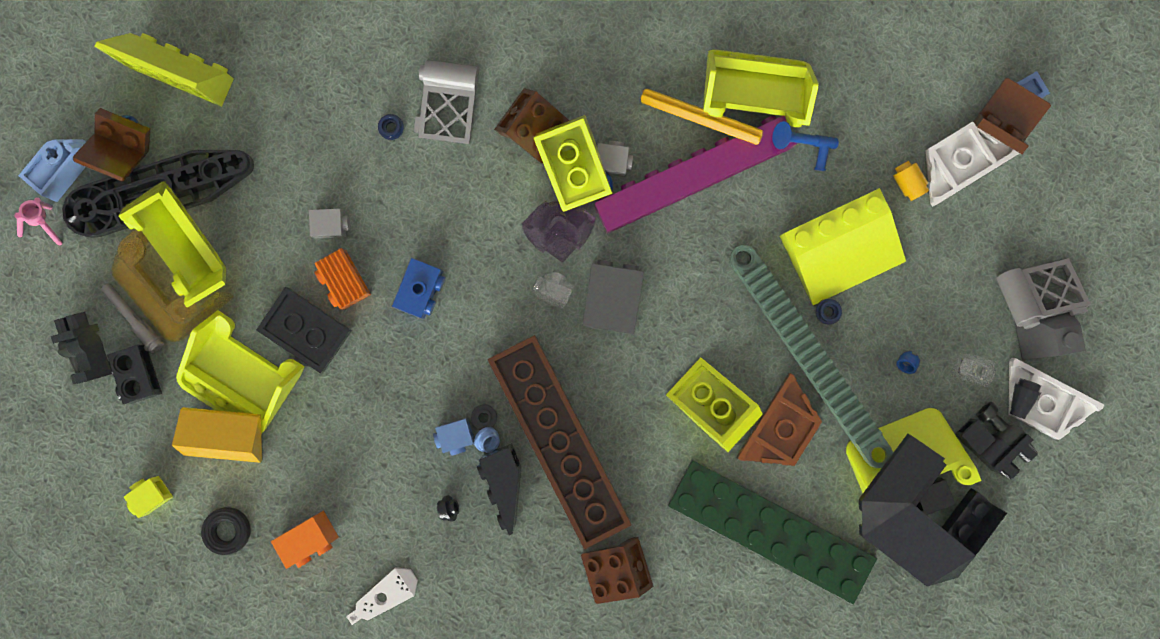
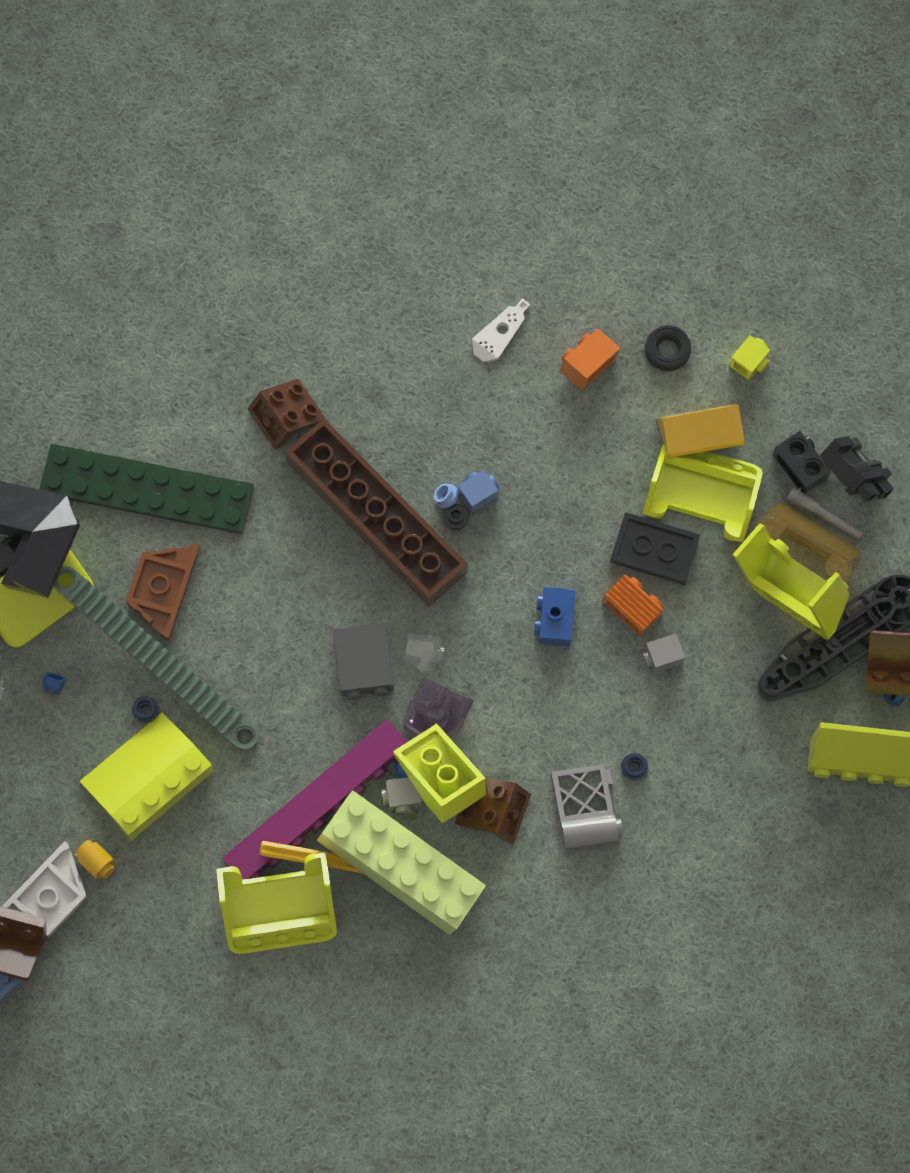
camera: 160 degrees right, 15 degrees down
(448, 508) = (464, 424): black plate -> none
(503, 476) = (421, 466): black slope -> none
(634, 89) = (401, 863): none -> yellowish green brick
(715, 404) = (235, 588): neon yellow slope -> none
(784, 135) = (238, 855): blue piece -> none

